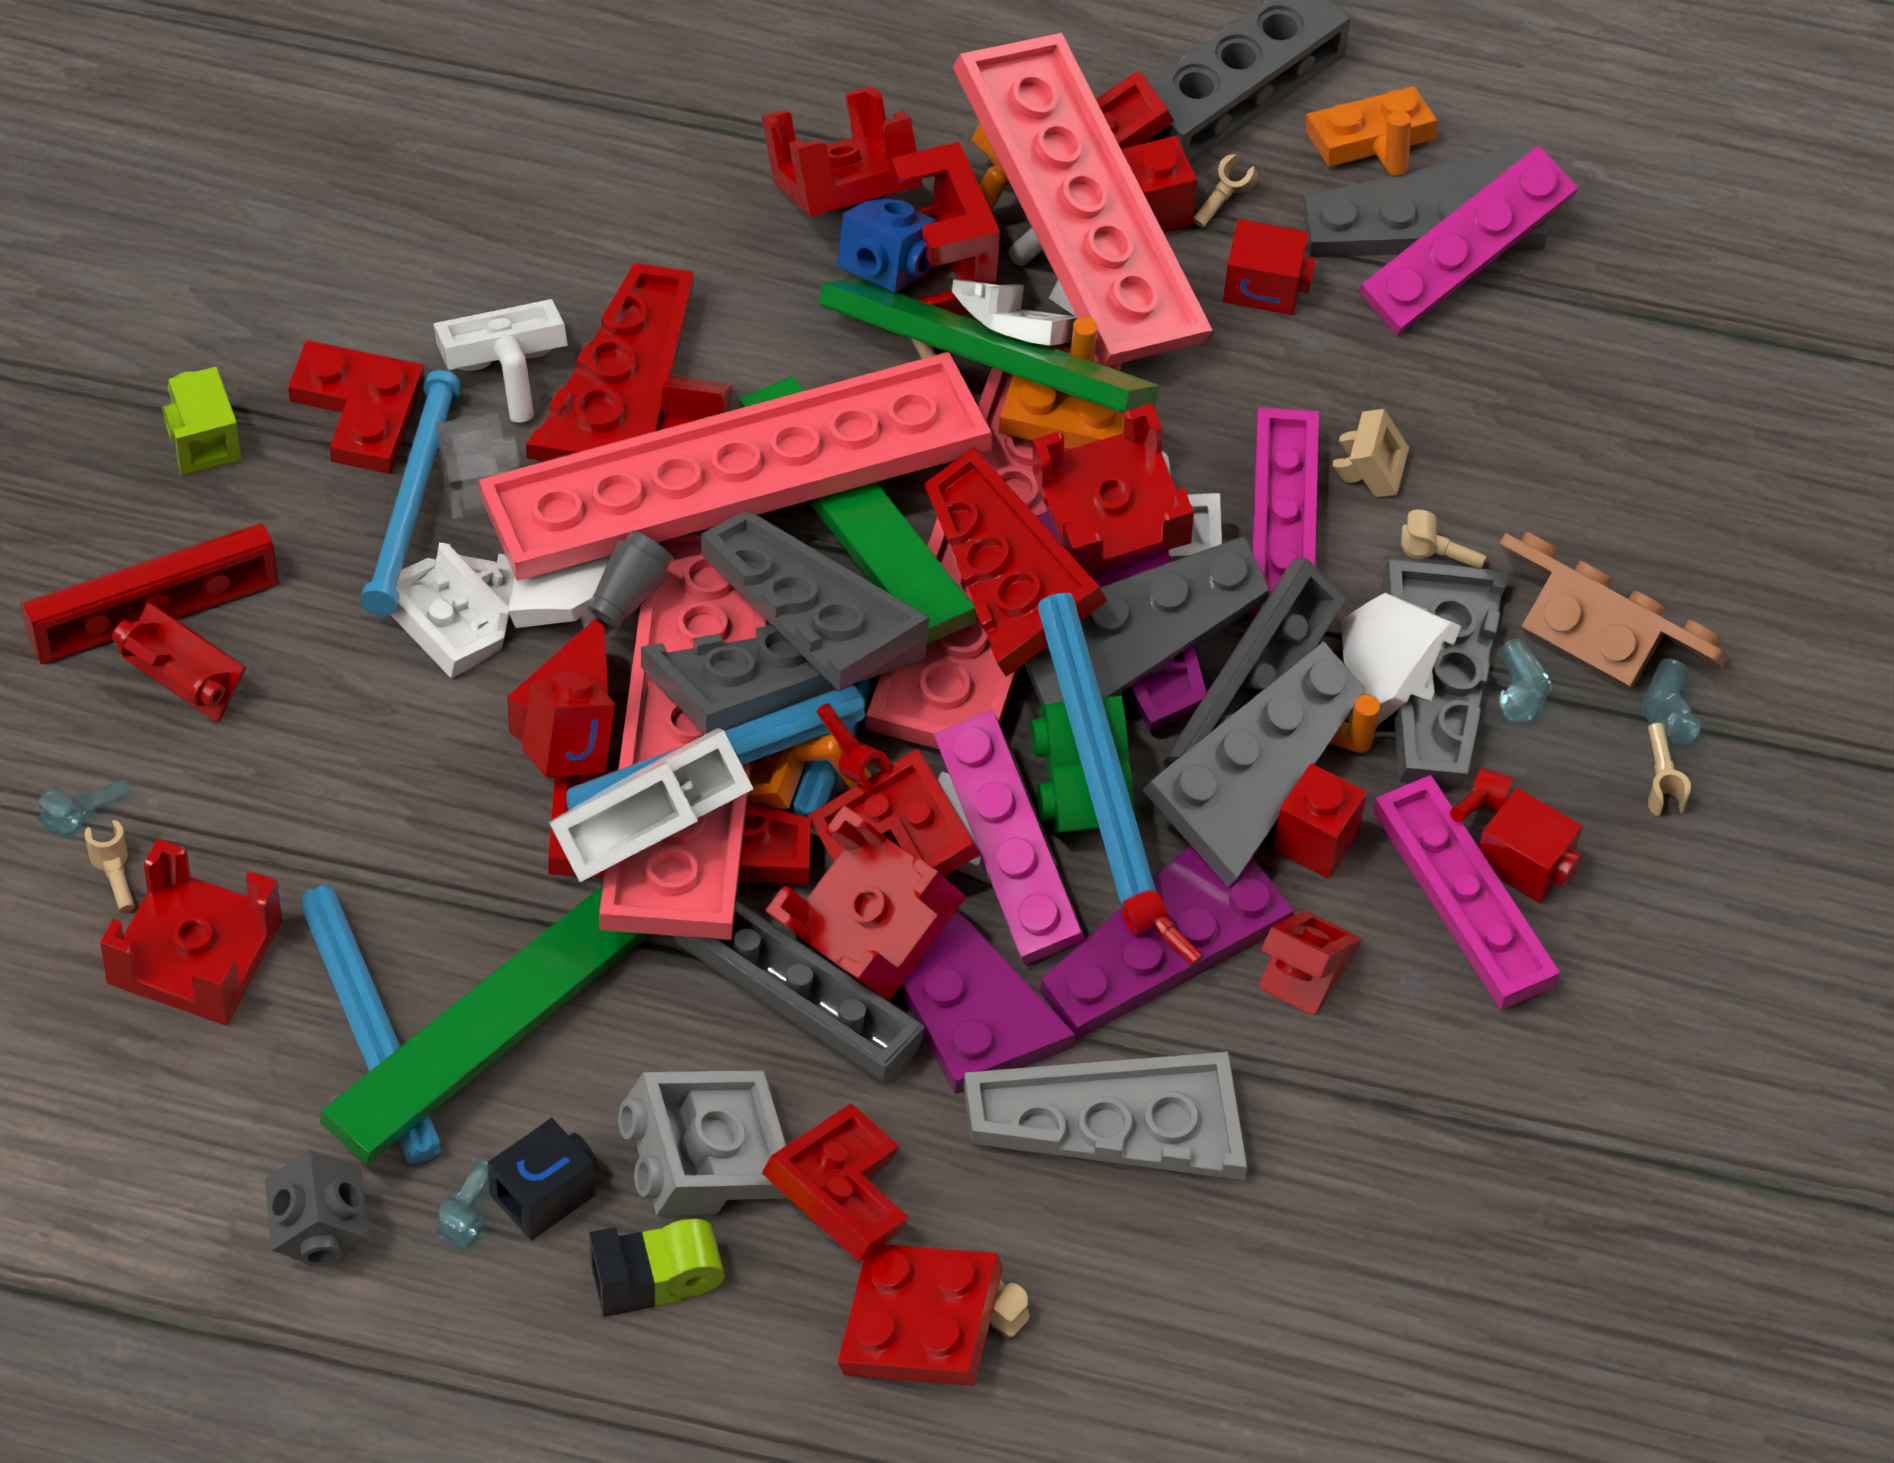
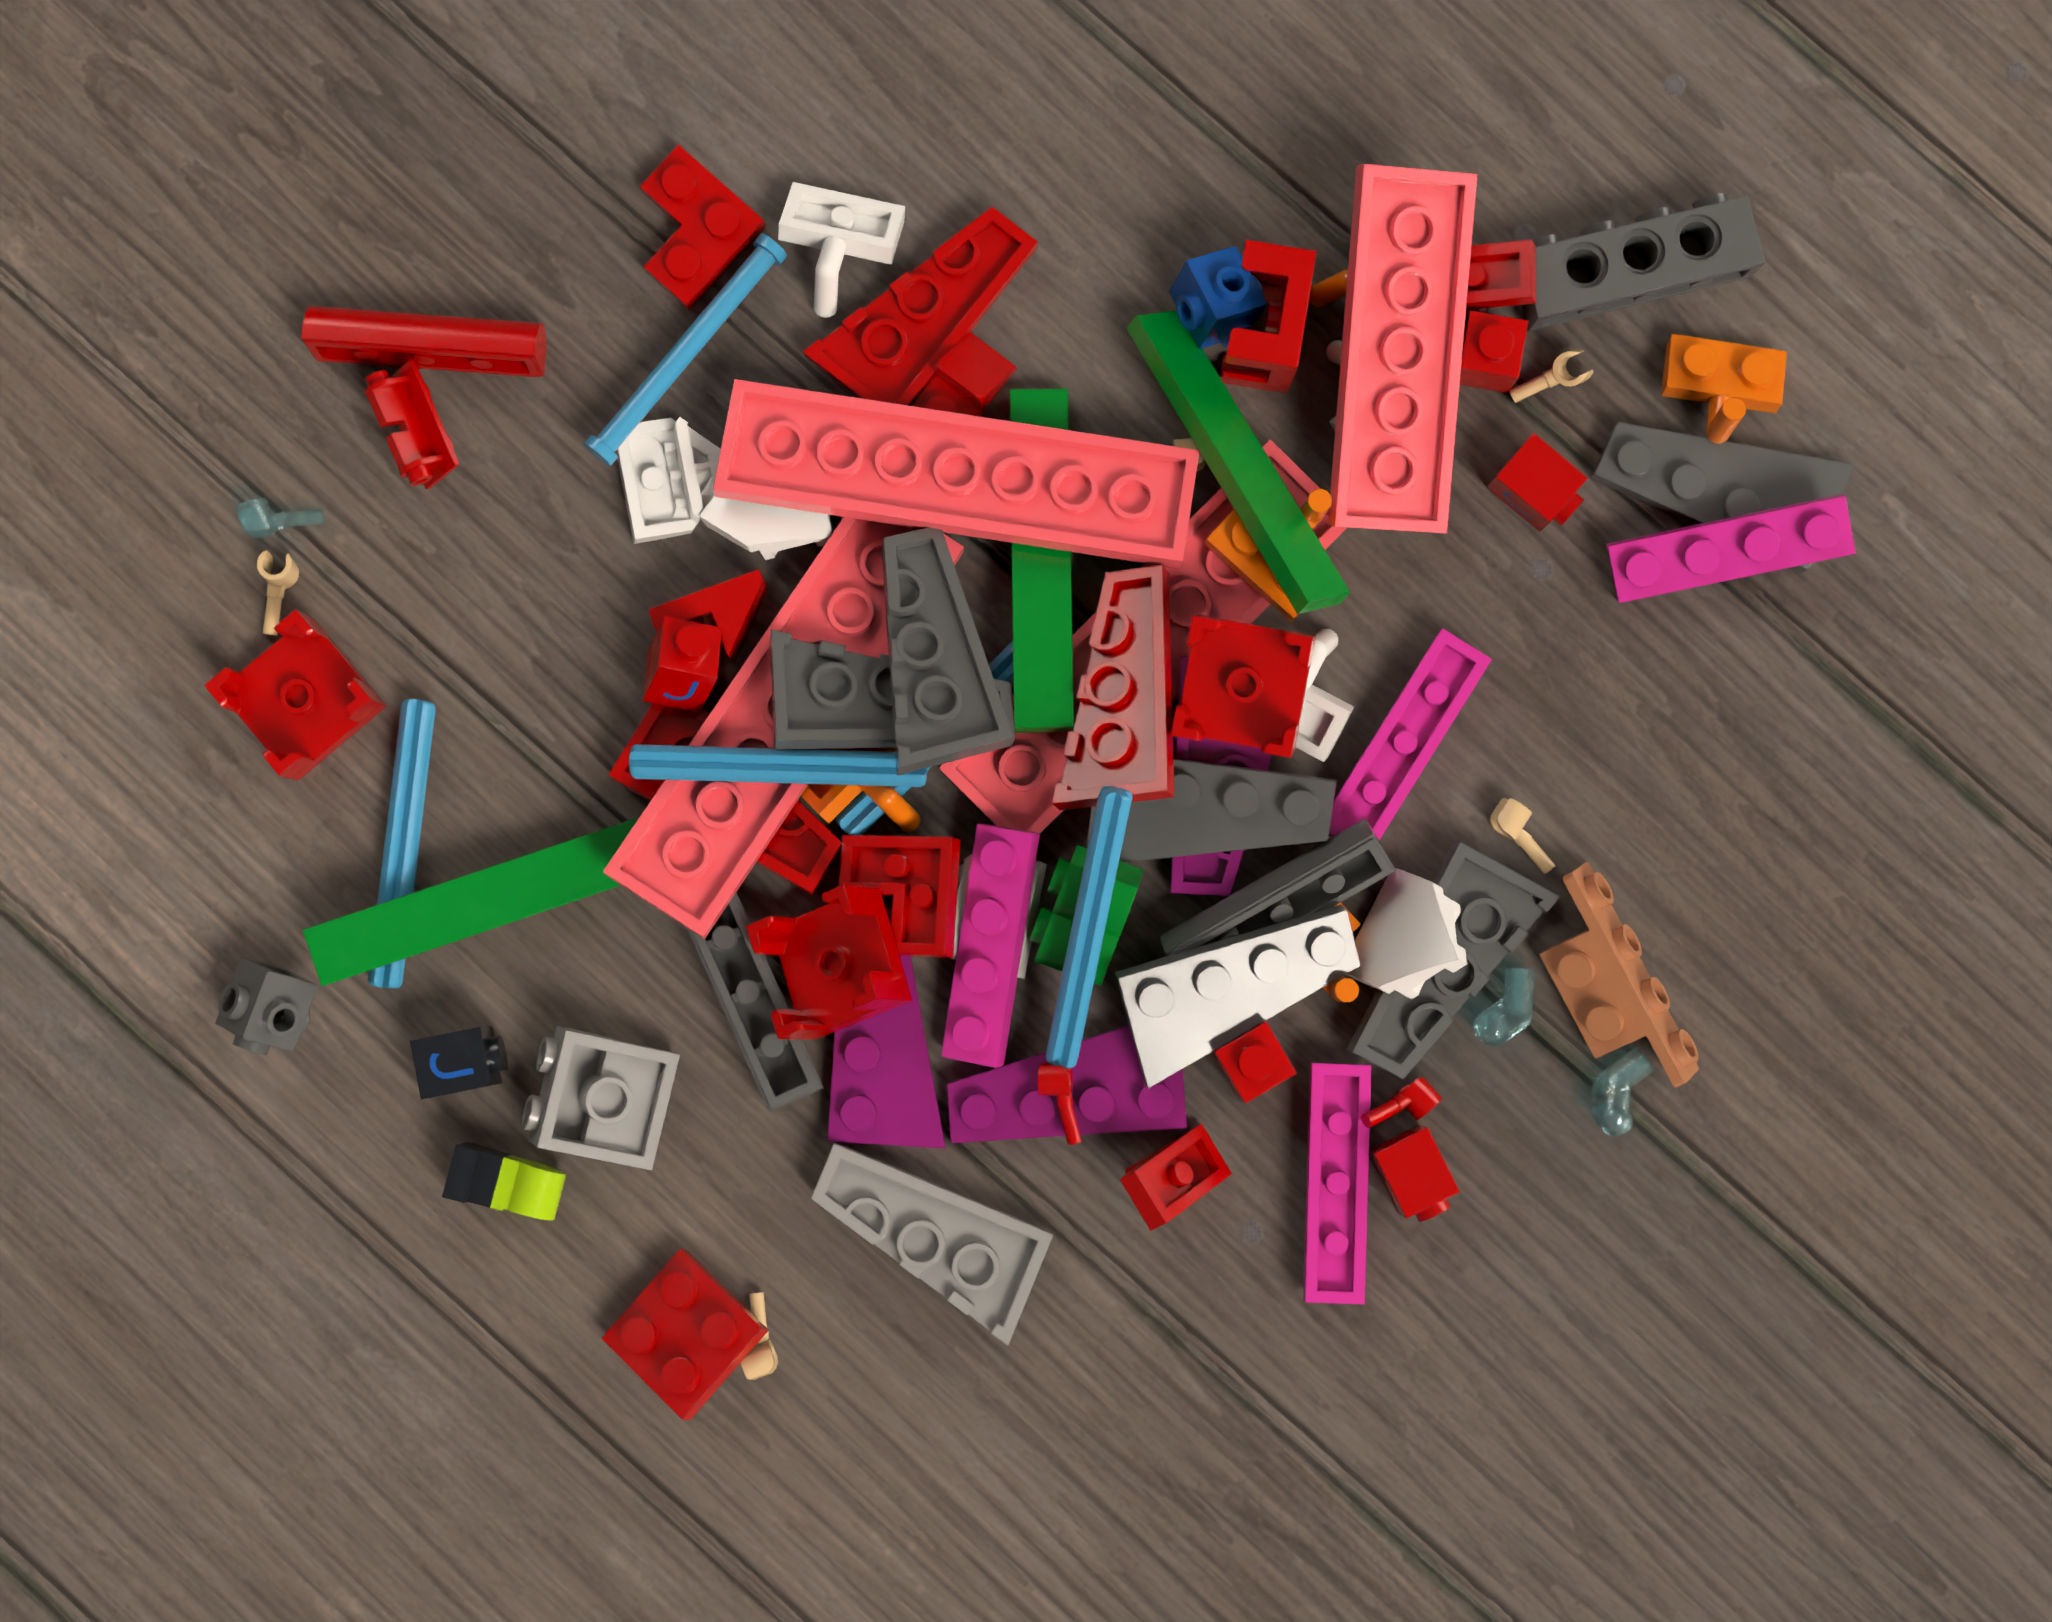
camera: 35 degrees right, 30 degrees up
(201, 421) = (548, 186): lime brick -> none
(458, 1221) = (379, 1056): clear light blue hand -> none
(471, 451) = (753, 345): clear brick -> none
(629, 578) = (806, 546): dark grey cone -> none
(651, 804) = (689, 802): white slope -> none
(829, 1180) = (666, 1190): red plate -> none
(845, 171) = (1224, 198): red panel -> none
(854, 754) = (897, 817): red hand -> none
(1001, 311) = (1282, 439): white slope -> none
(1375, 454) = (1518, 724): tan tile -> none
(1667, 778) = (1572, 1156): tan hand -> none

